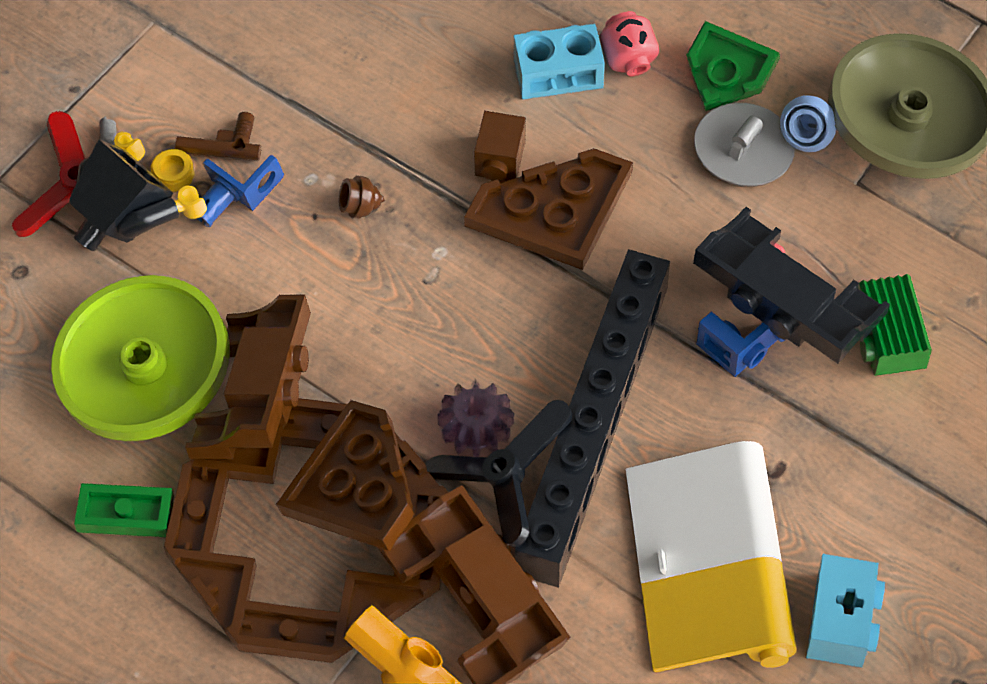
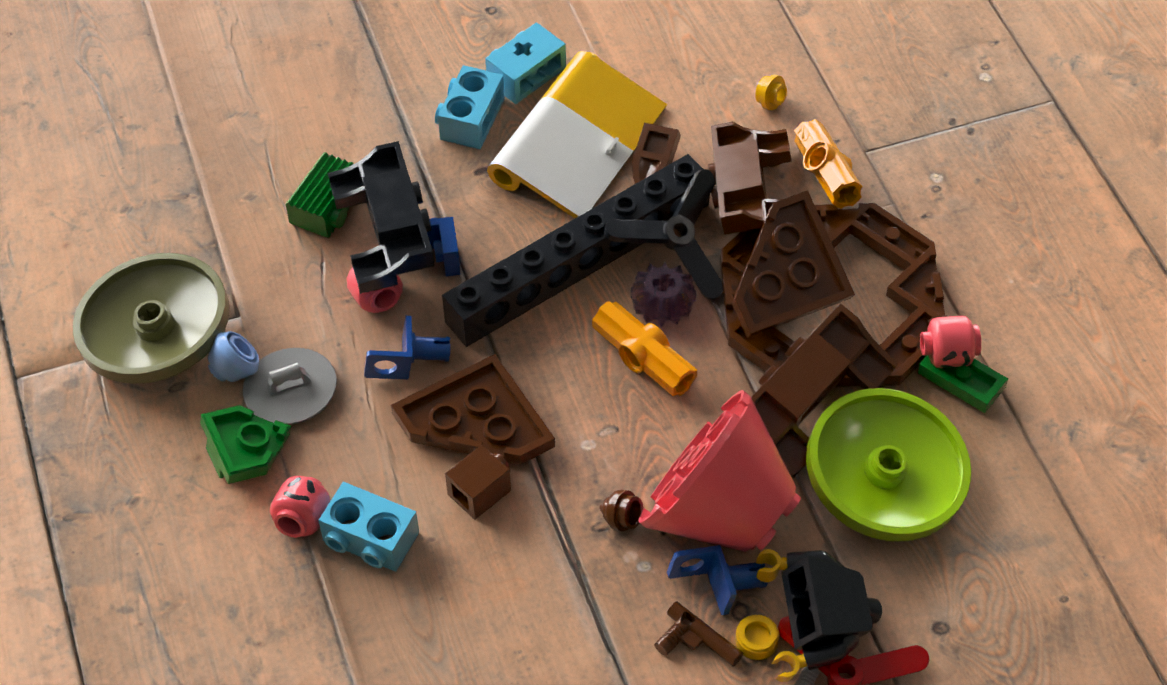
camera: 145 degrees left, 5 degrees down
(147, 509) = (951, 341): none -> coral head
(274, 222) = (726, 483): none -> coral cone
(452, 354) = (644, 348): none -> light orange piece
(611, 581) = (654, 150): none -> reddish brown plate
(664, 224) = (412, 348): none -> blue bracket
(839, 517) = (470, 107): none -> medium azure brick

